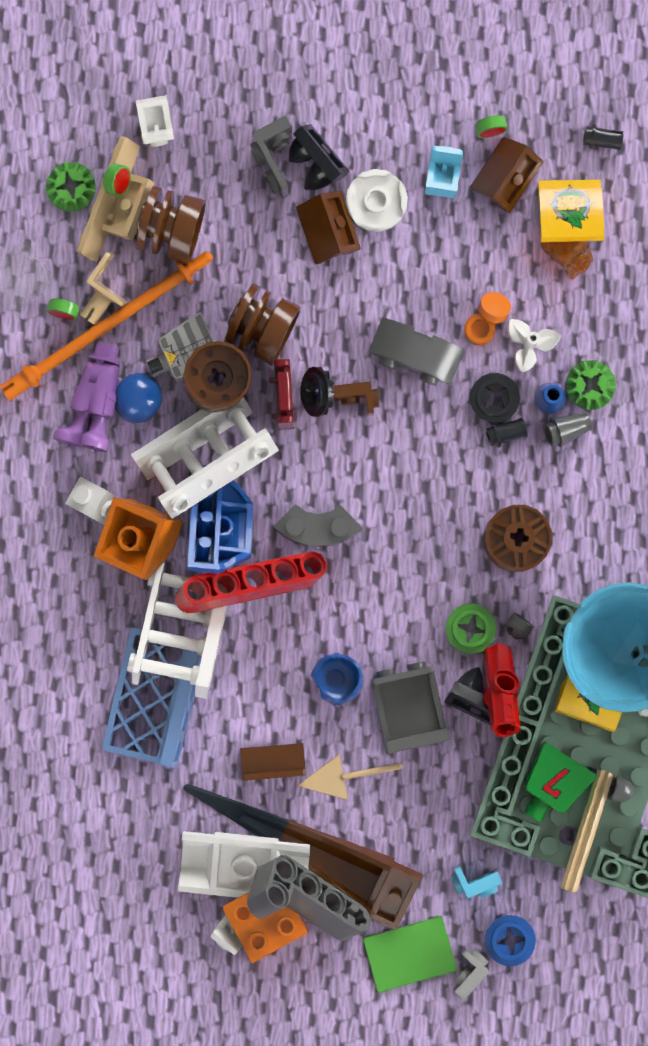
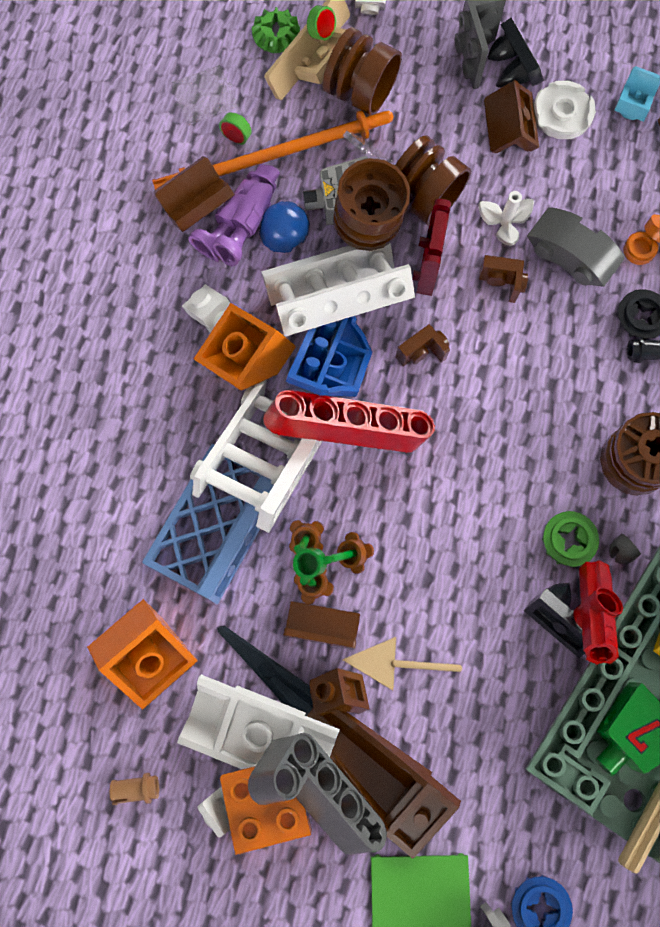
camera: 15 degrees right, 10 degrees down
(45, 393) = (193, 194): none -> reddish brown panel
(103, 296) = (278, 124): tan bracket -> none
(126, 827) = (141, 654): none -> orange slope
(153, 937) = (134, 789): none -> medium nougat pin
(203, 307) = (365, 147): none -> clear piece
(249, 714) = (311, 561): none -> dark orange plant
(293, 490) = (417, 346): none -> reddish brown bracket
(302, 813) = (338, 691): none -> reddish brown bracket
(315, 402) = (468, 250): black gear -> none
(317, 529) = (432, 391): dark grey brick -> none
(338, 678) = (417, 552): blue hair -> none
(355, 323) = (515, 211): none -> white plant
(409, 708) = (485, 605): dark grey panel -> none
(483, 885) = (524, 832): medium azure bracket -> none

